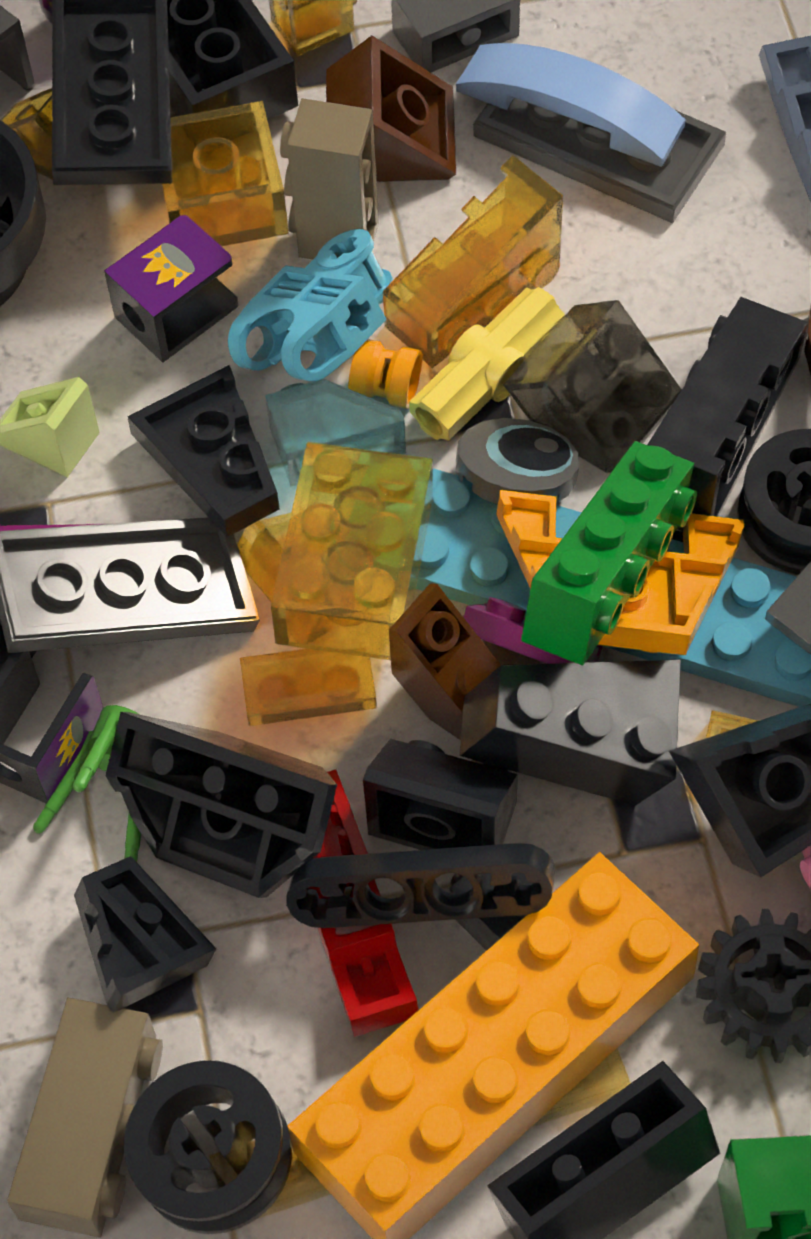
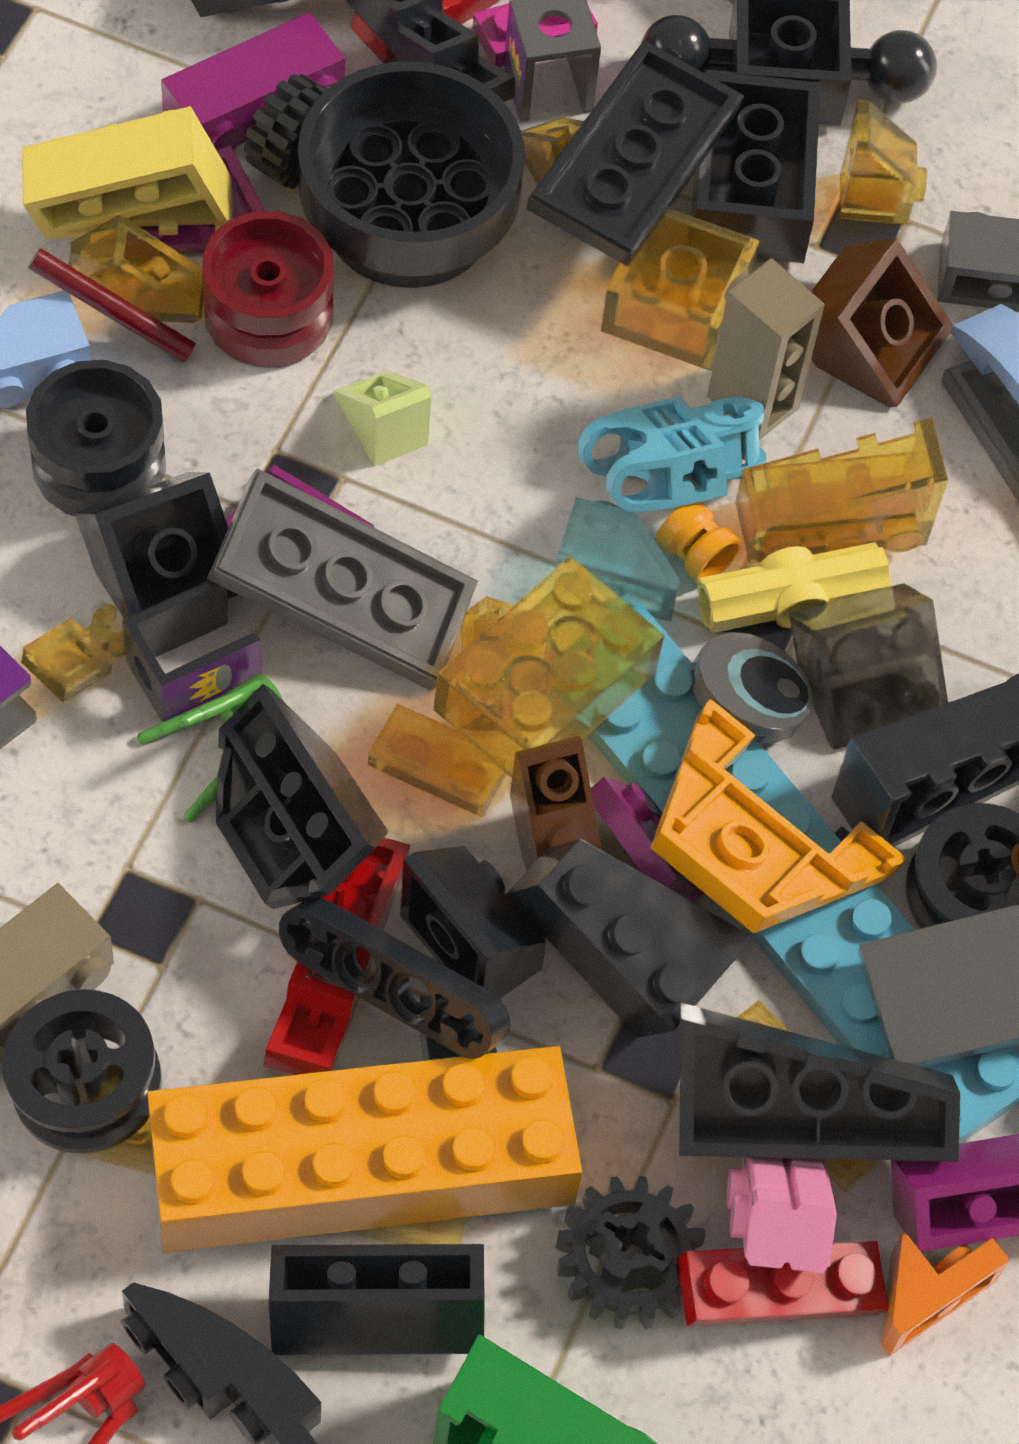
camera: 25 degrees right, 0 degrees up
(136, 934) = (151, 870): black wing -> none
(170, 287) = (571, 357): piece -> none
(210, 450) = (502, 515): black wing -> none
(608, 552) = (745, 803): green brick -> none

